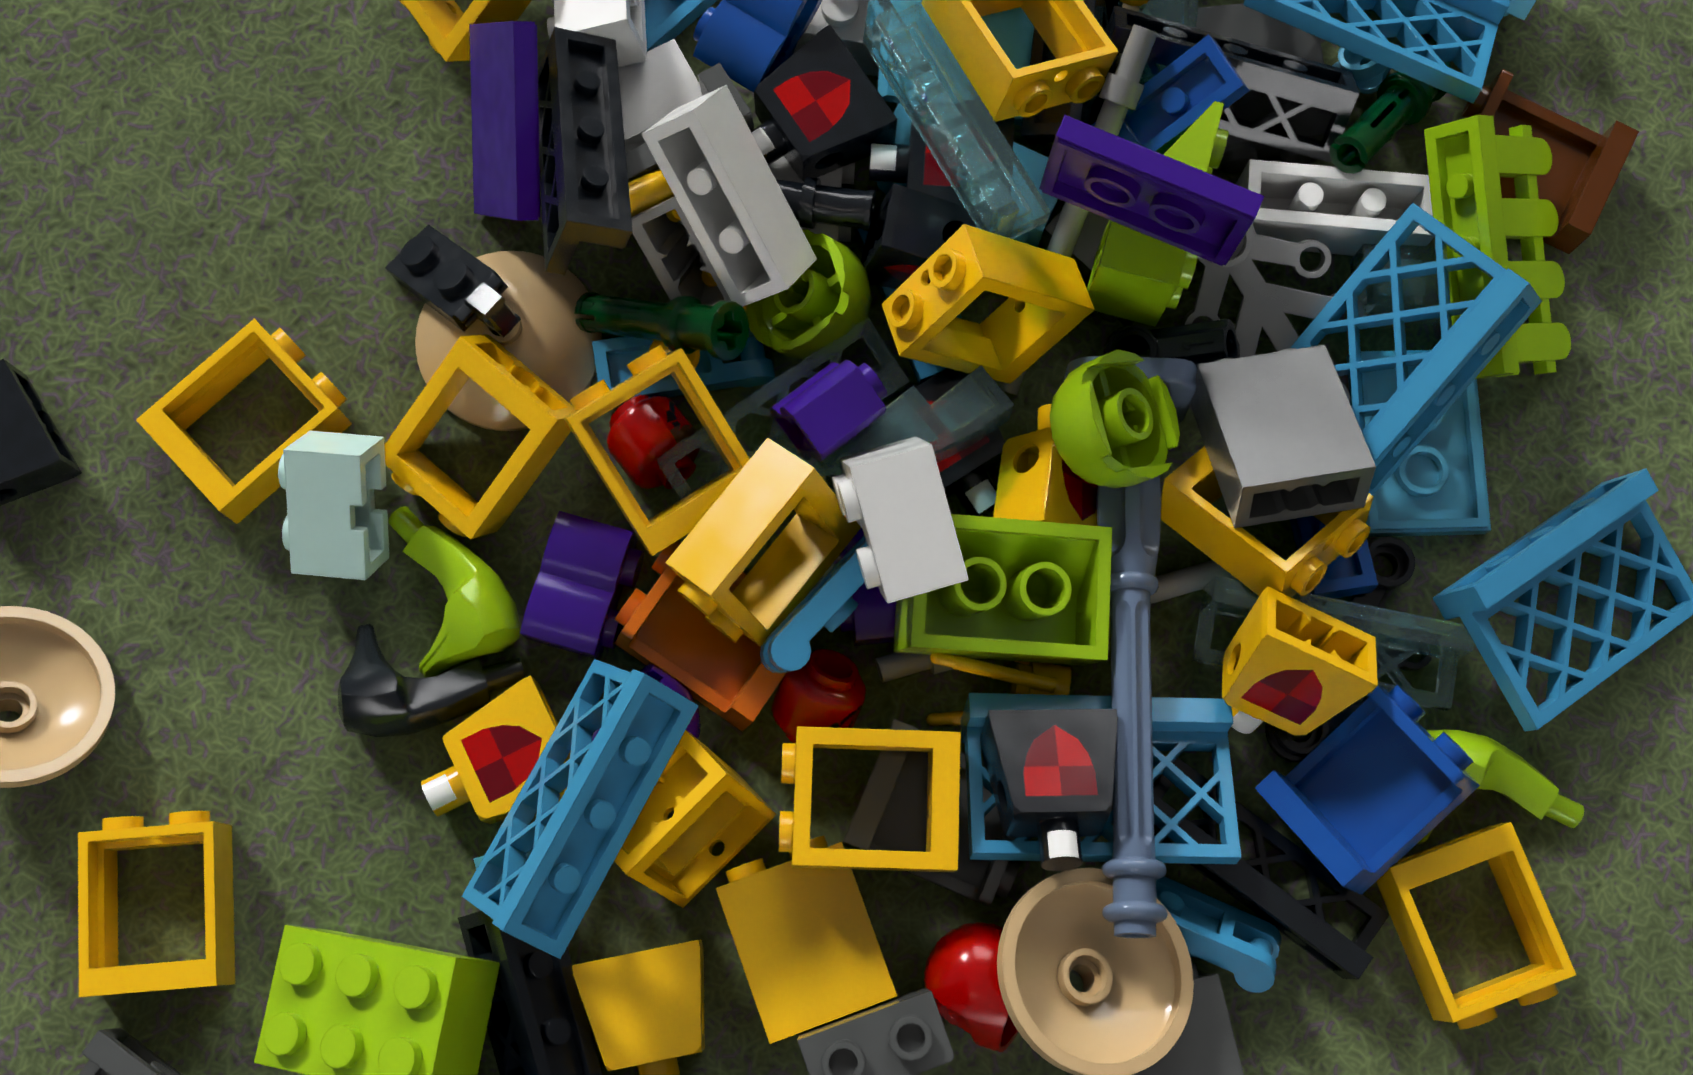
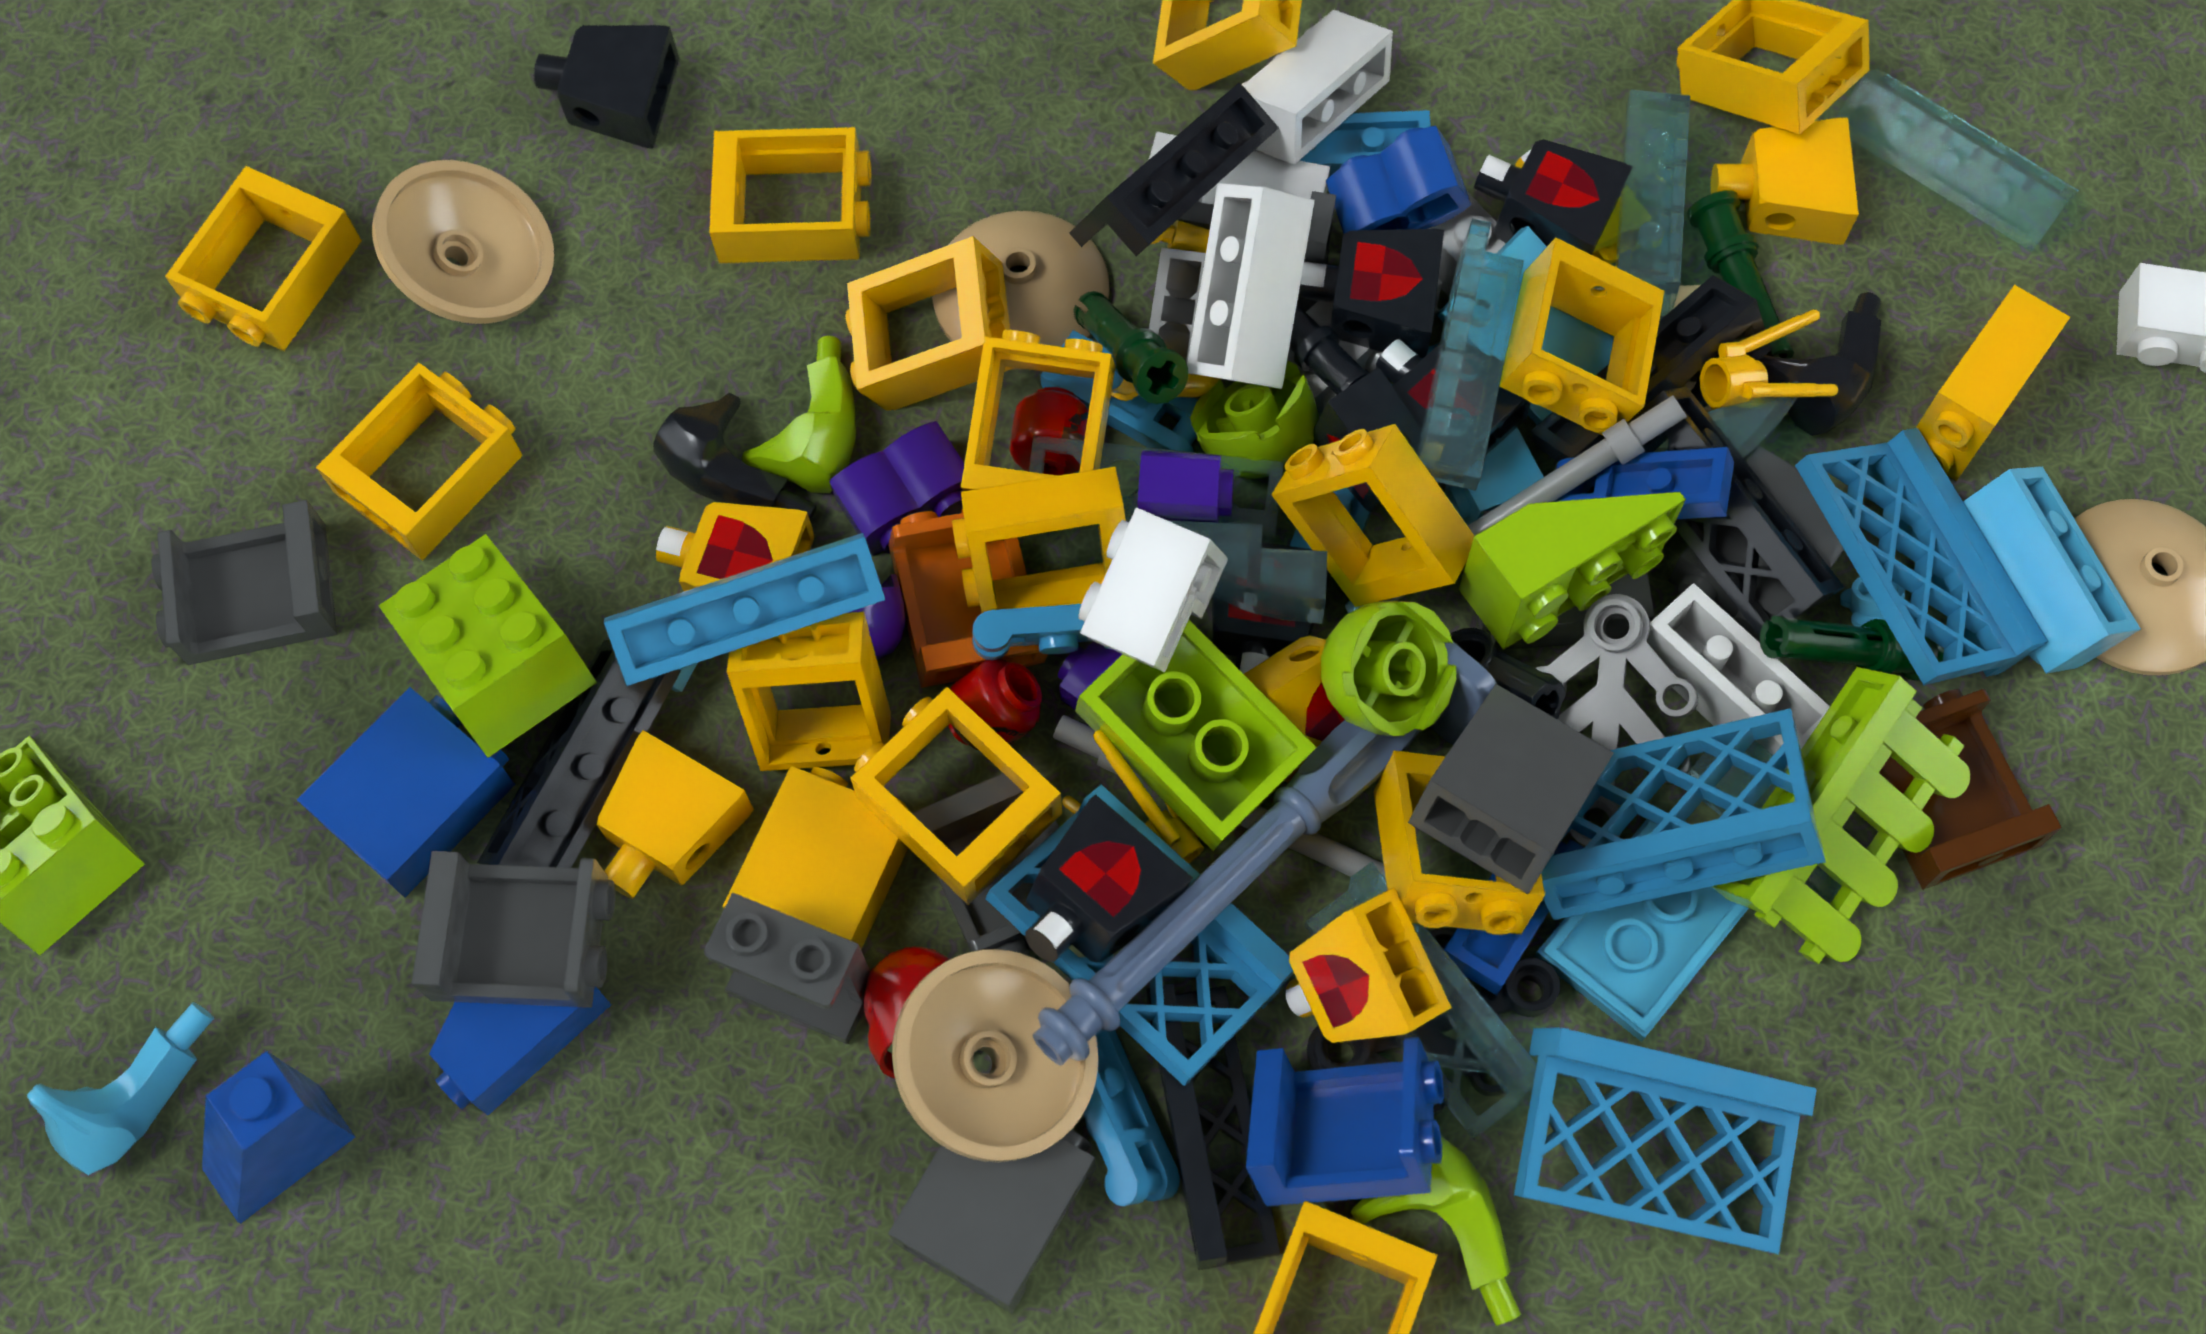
camera: 50 degrees right, 10 degrees down
(332, 504) = (787, 291): light aqua brick -> none
(453, 282) = (1013, 211): black hinge -> none
(505, 119) = (1151, 120): dark purple tile -> none
(1148, 191) = (1546, 496): dark purple tile -> none

